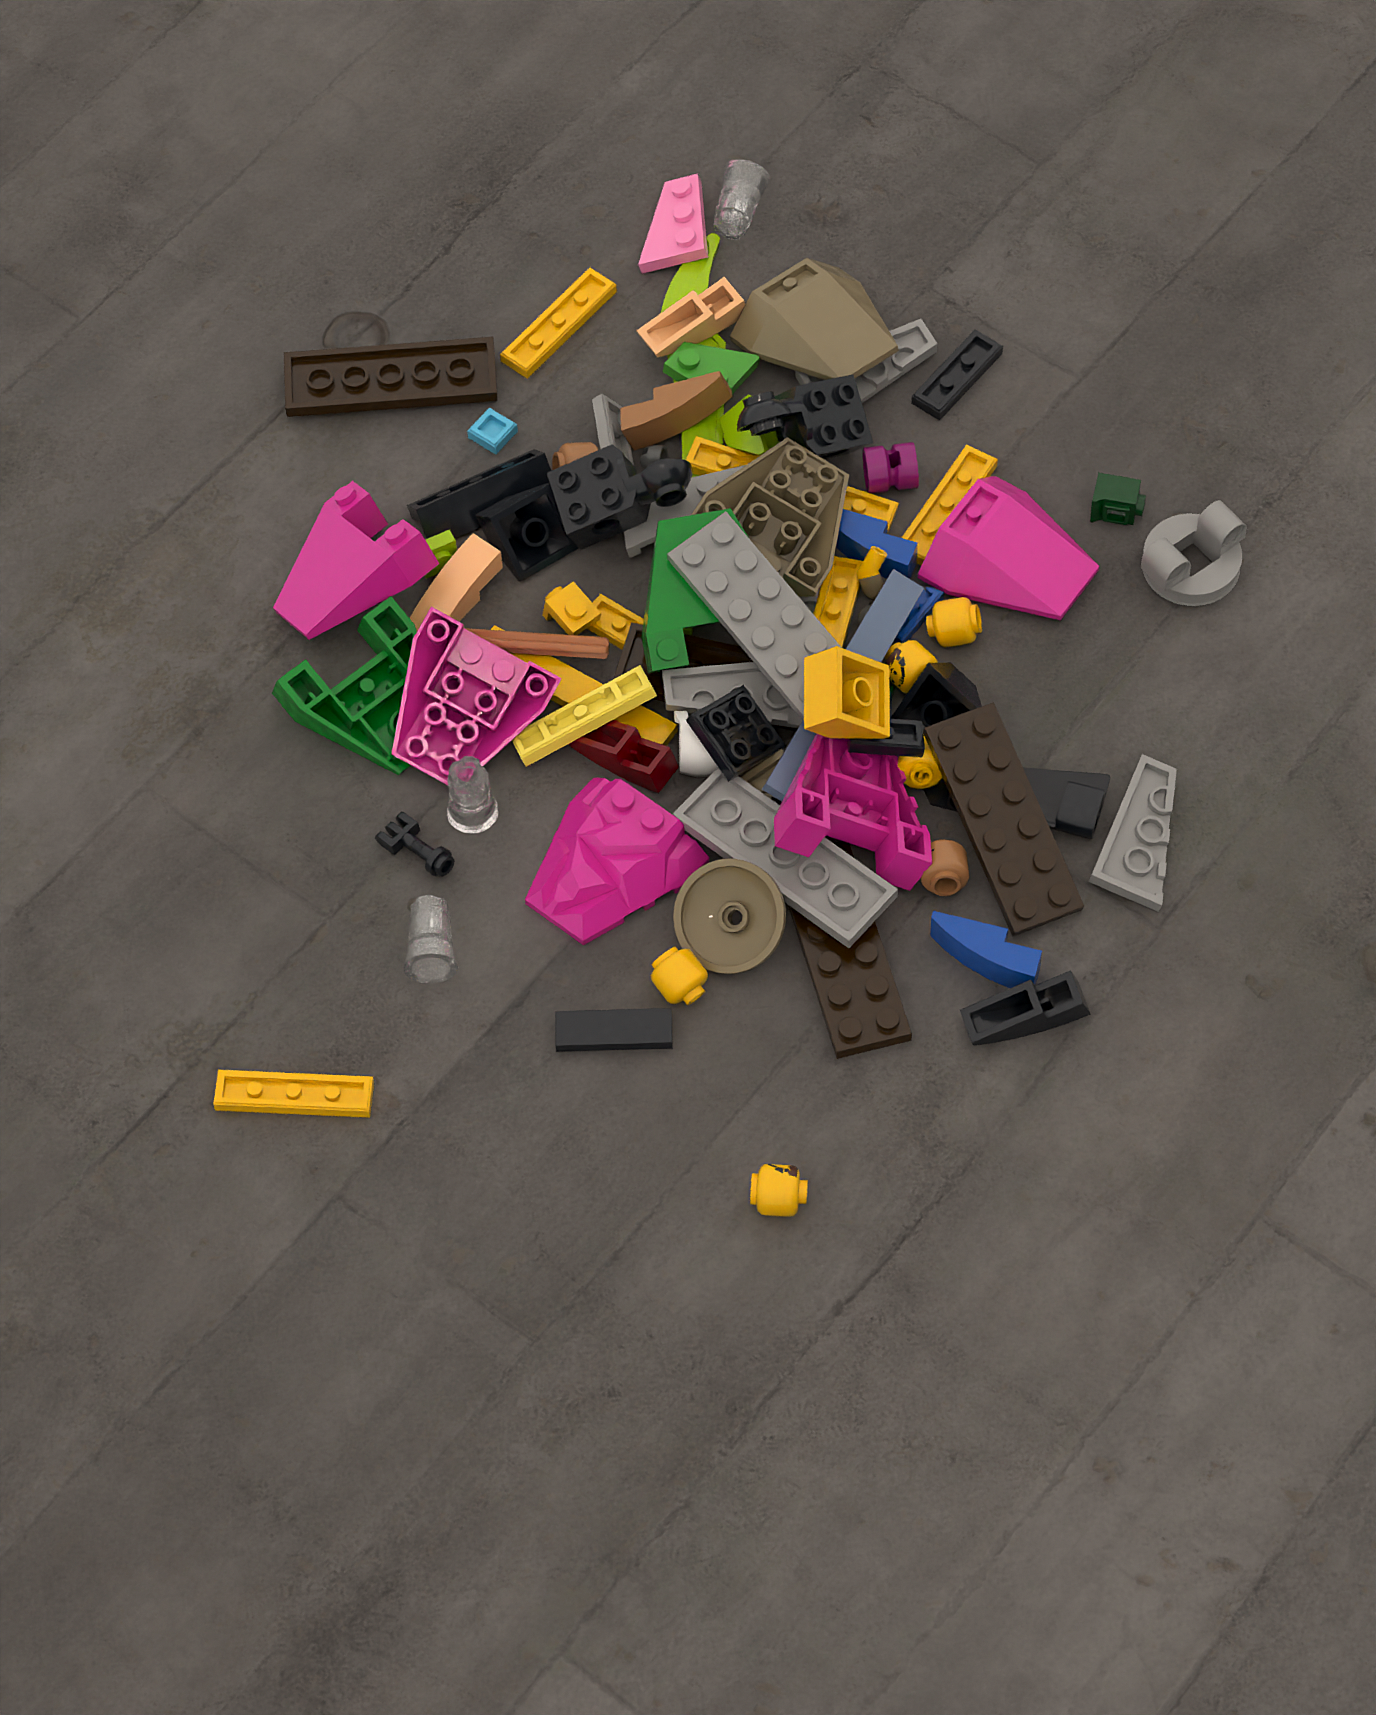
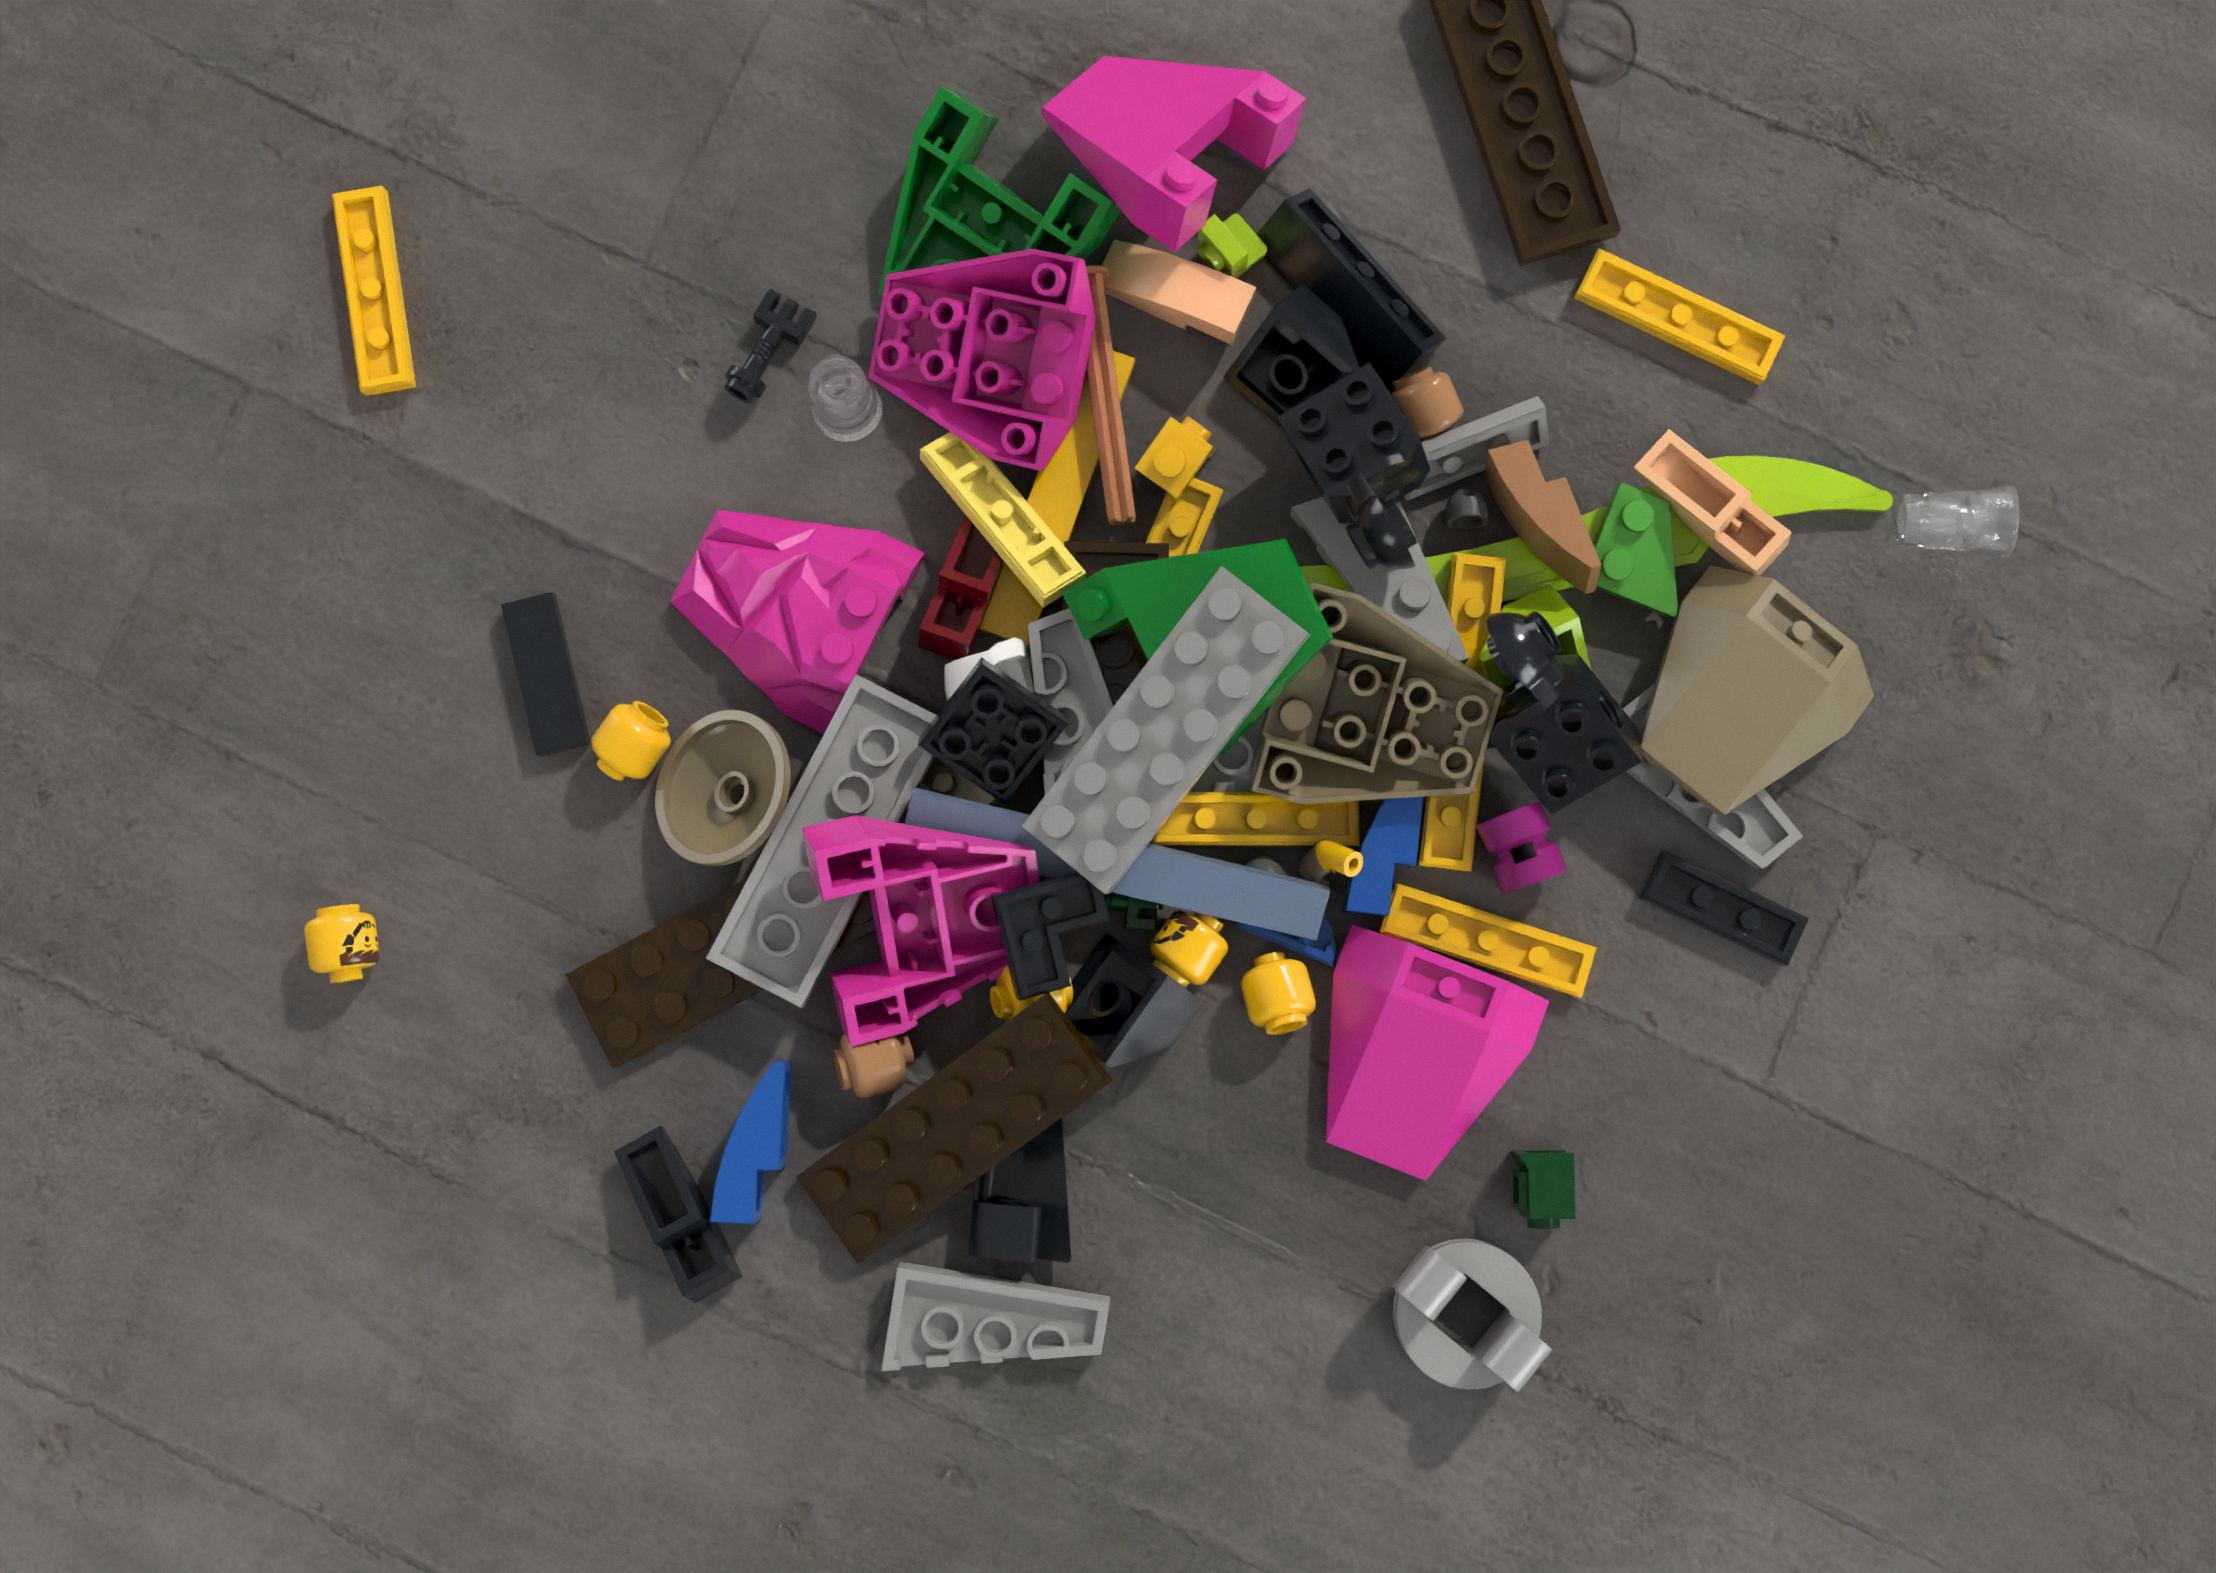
camera: 75 degrees right, 25 degrees up
(430, 942) = (618, 401): clear plant -> none
(492, 431) = (1467, 272): medium azure tile -> none
(677, 226) = (1892, 444): bright pink wing -> none
(846, 695) = (1044, 876): yellow slope -> none

